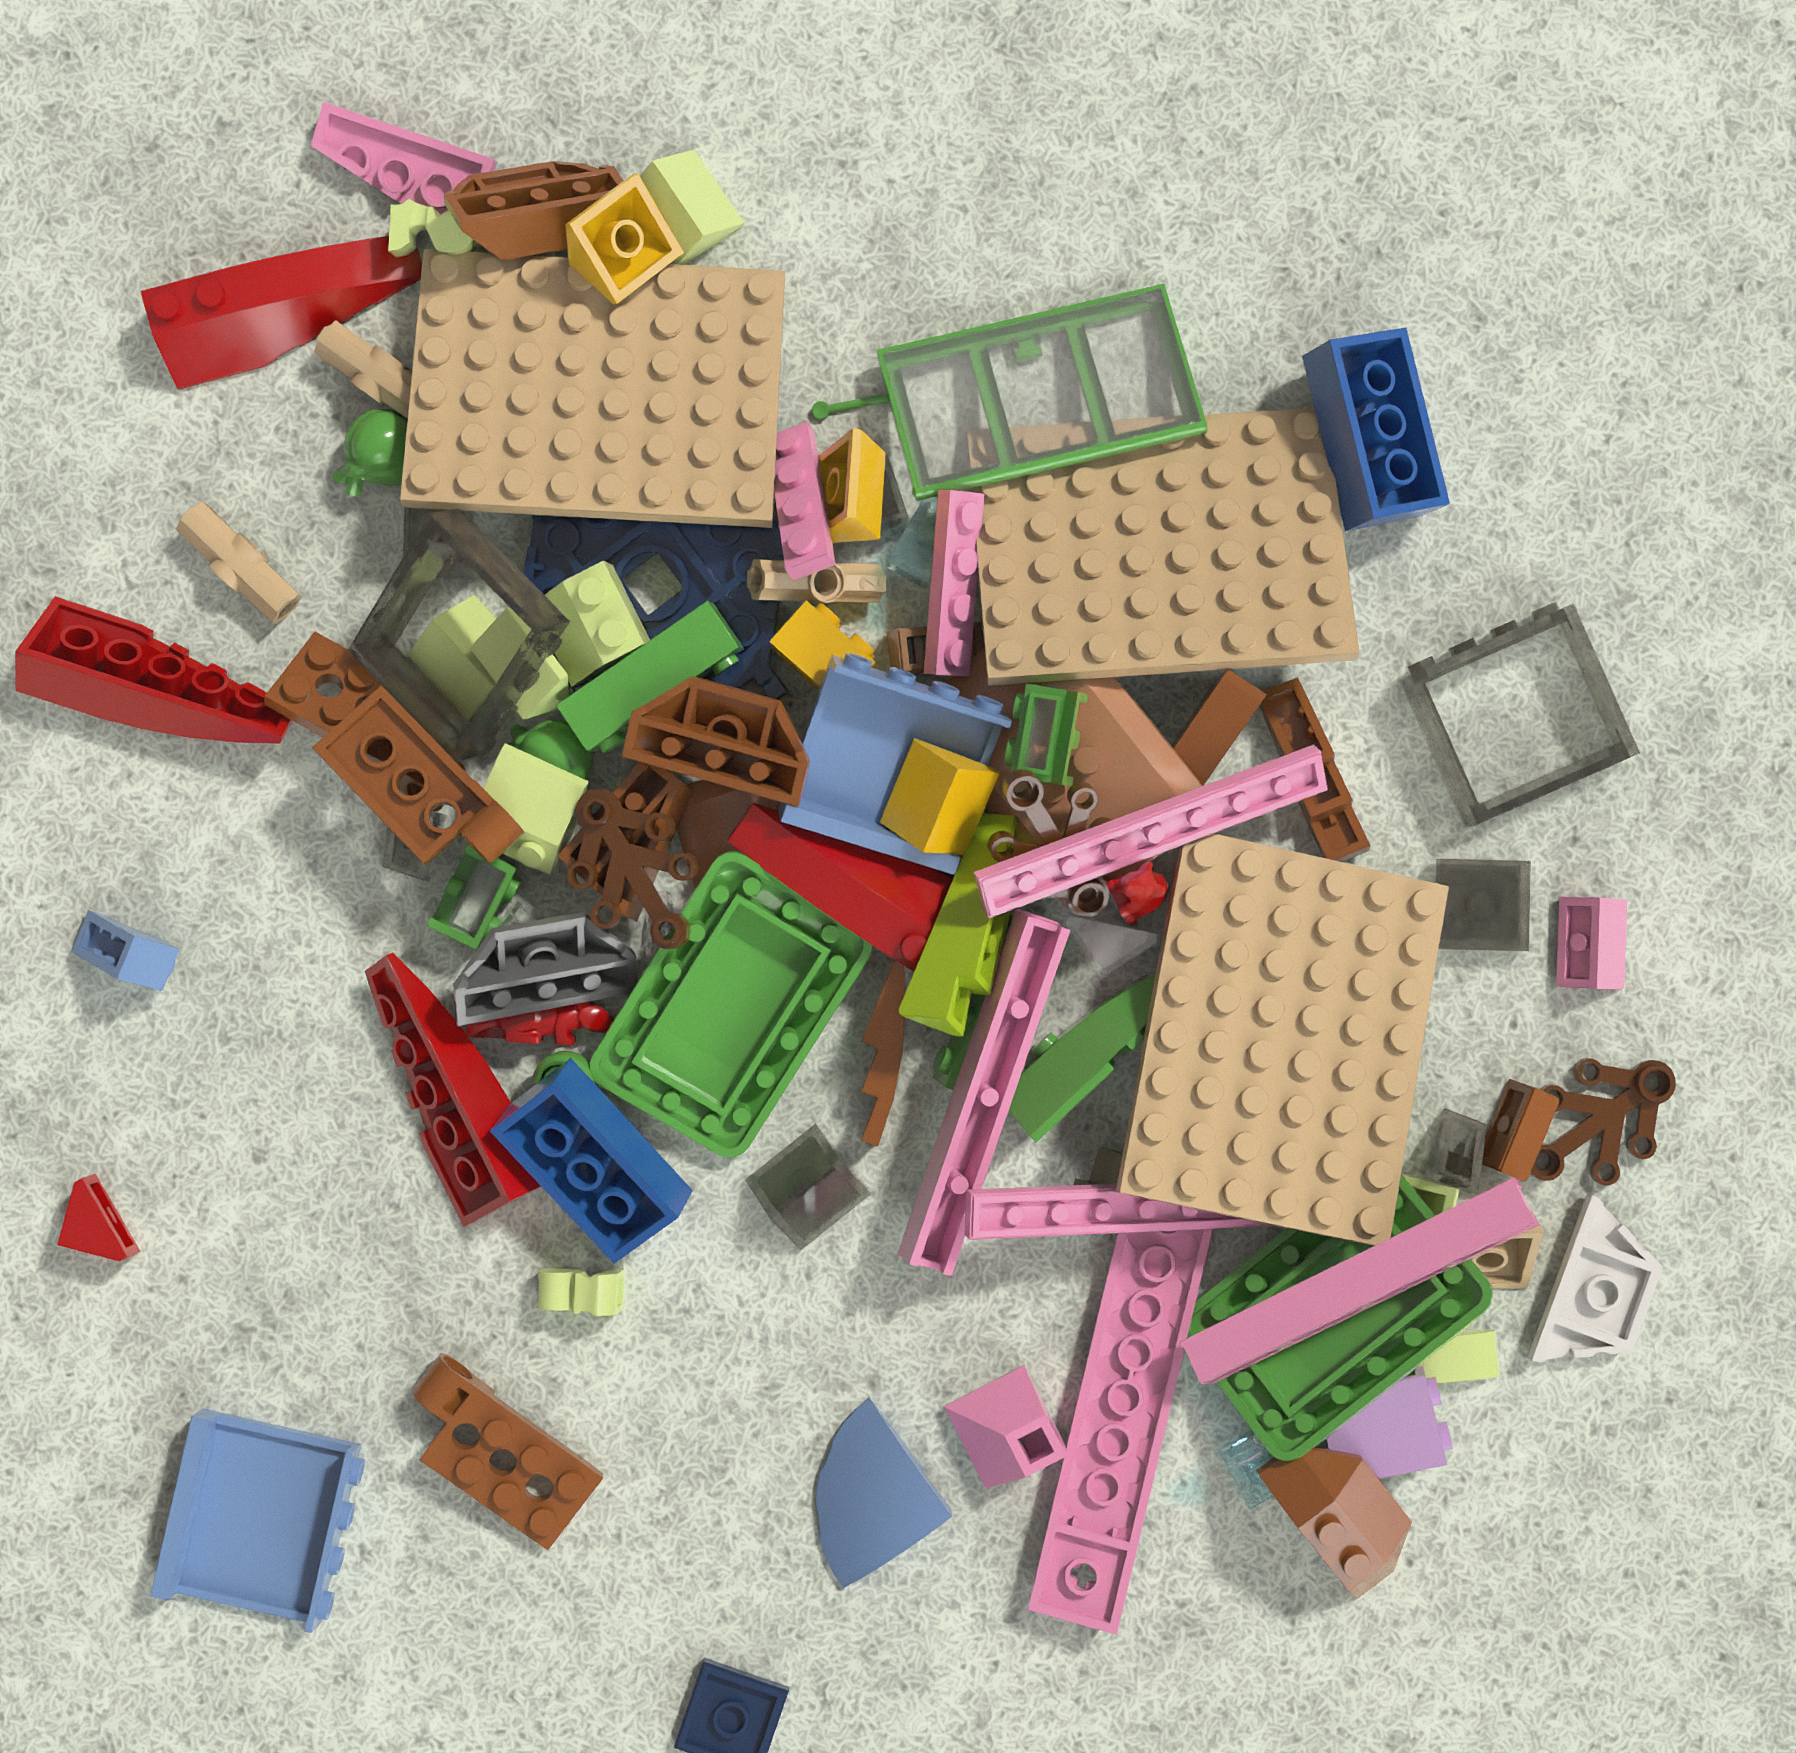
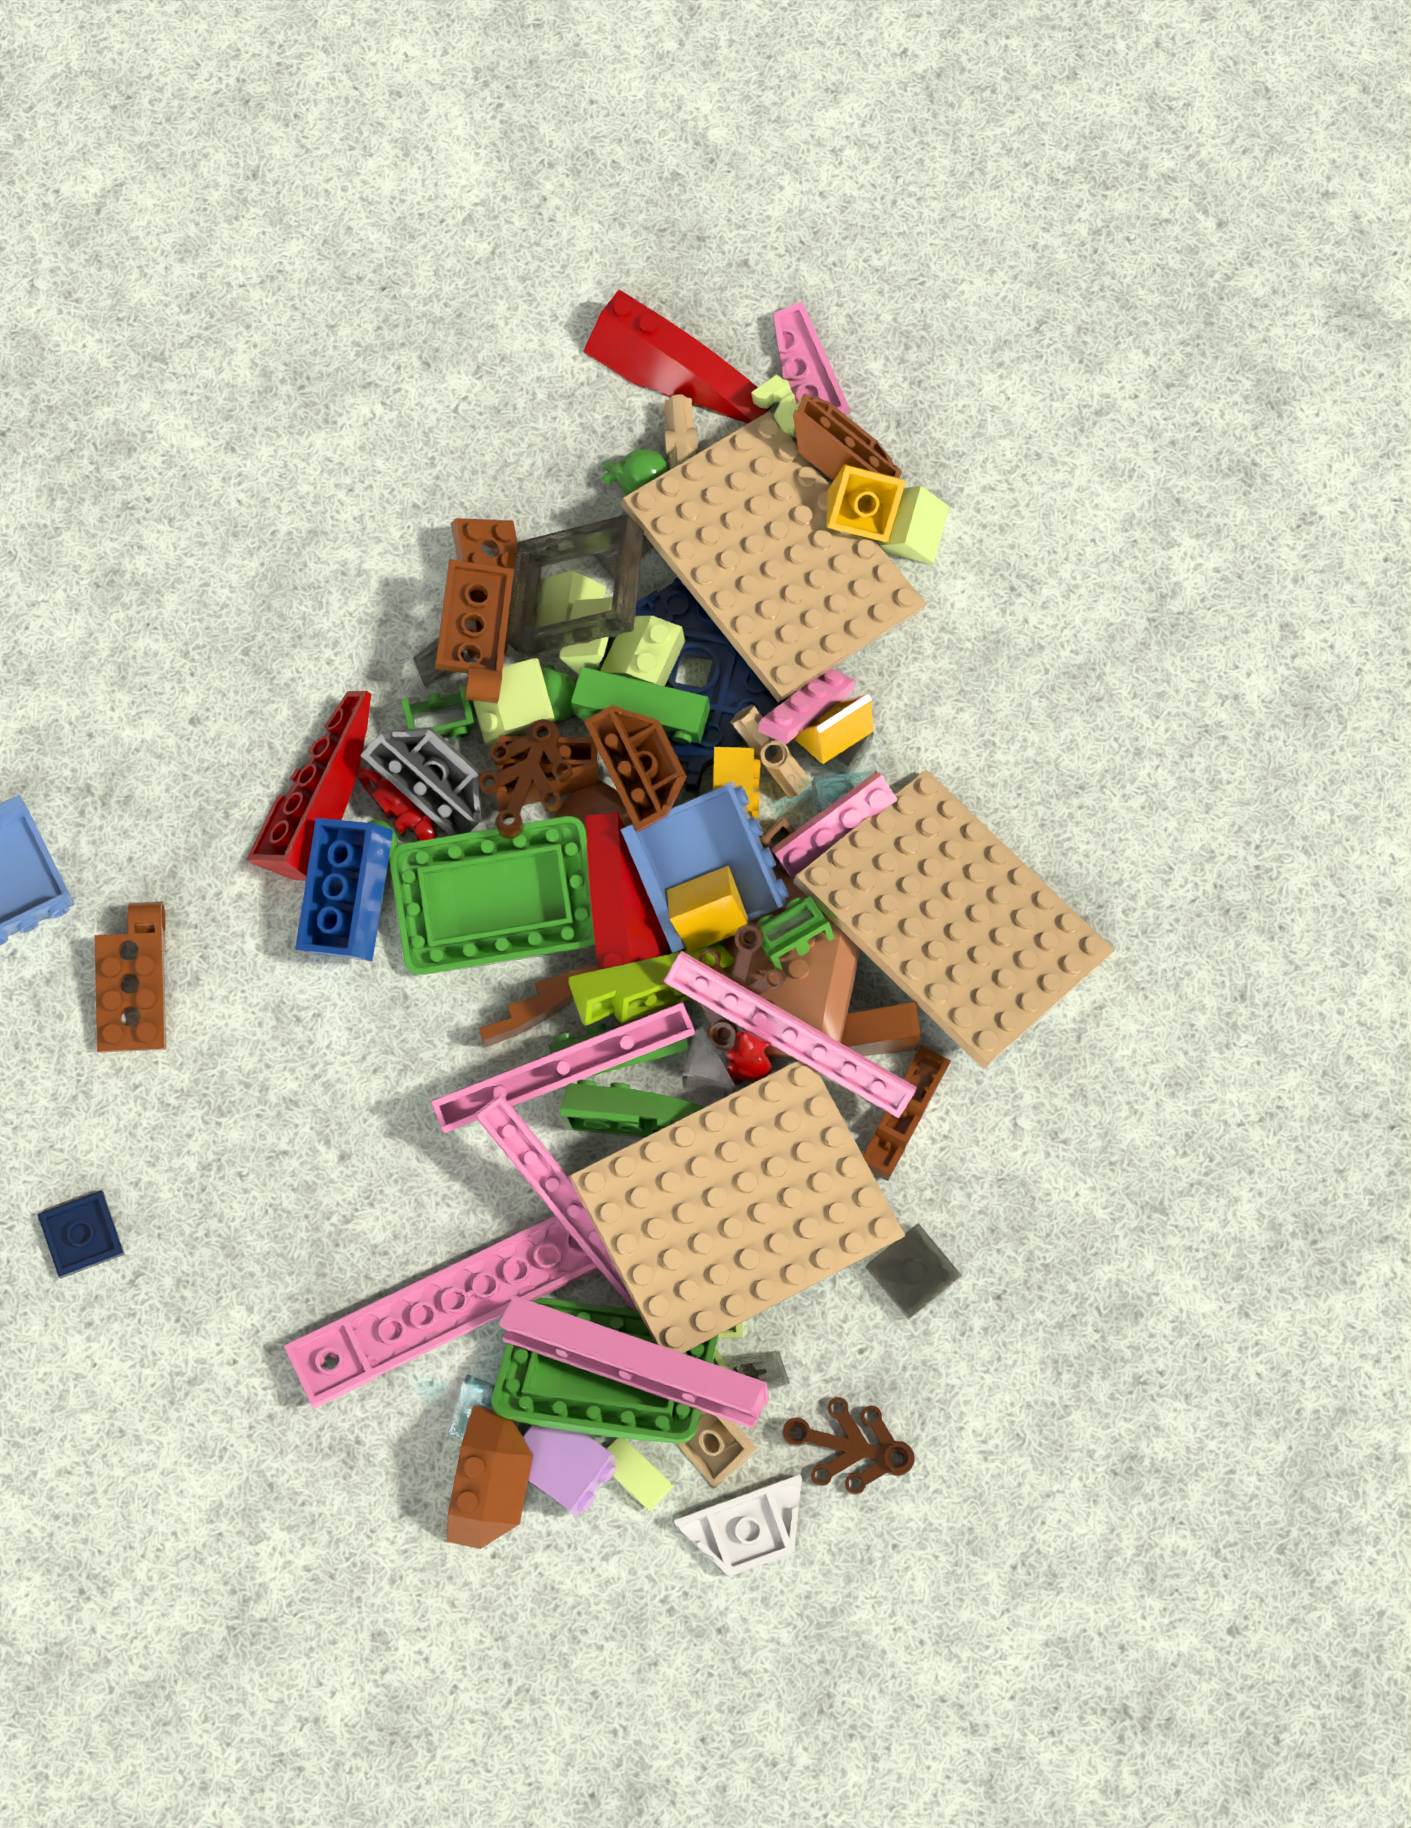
camera: 50 degrees right, 15 degrees down
(94, 1223) = (86, 661): red slope -> none
(125, 951) = (252, 561): medium blue arch -> none
(130, 678) = (406, 449): red wedge -> none
(238, 562) = (516, 452): tan piece -> none
(576, 1291) = (262, 946): yellowish green leg -> none
(807, 1187) = (426, 1028): clear smoke slope -> none
(822, 410) = (869, 686): bright green hinge -> none
(873, 1497) = (276, 1207): medium blue brick -> none
(1006, 1429) = (380, 1249): bright pink slope -> none
(1041, 392) = (982, 788): clear door -> none
(1375, 428) = (1123, 982): blue brick -> none
(1442, 750) = (1015, 1247): clear smoke window -> none
(1518, 1129) = (802, 1400): dark orange slope -> none
(1591, 943) = (948, 1354): bright pink panel -> none

